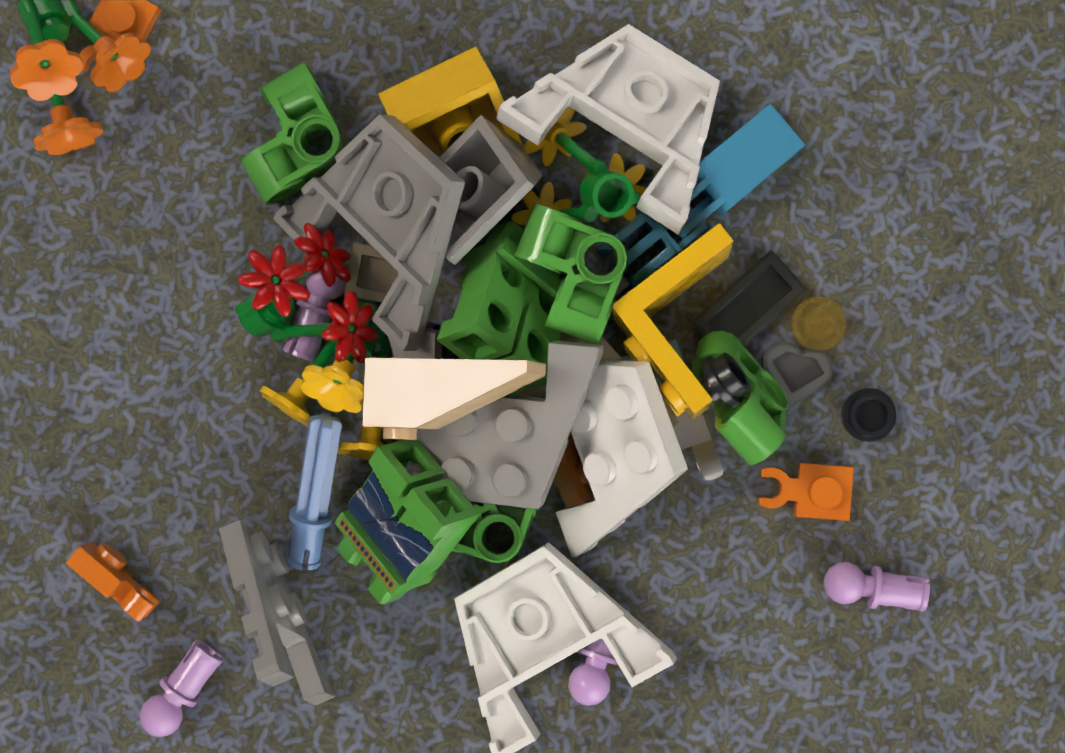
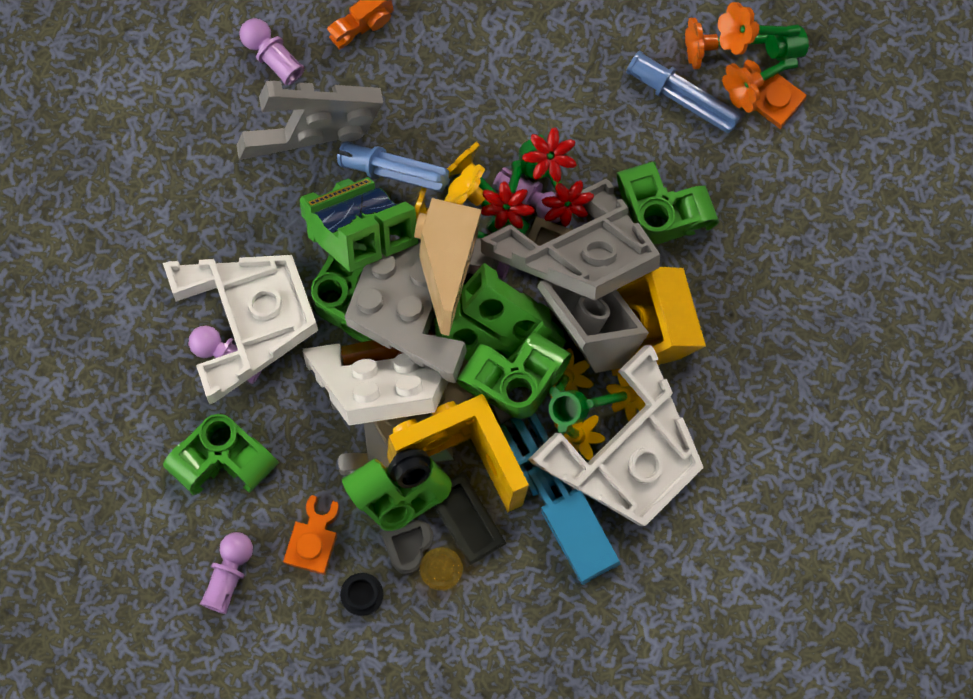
camera: 110 degrees right, 15 degrees down
(136, 141) = (683, 92): none -> medium blue axle
(730, 600) = (199, 459): none -> bright green piece

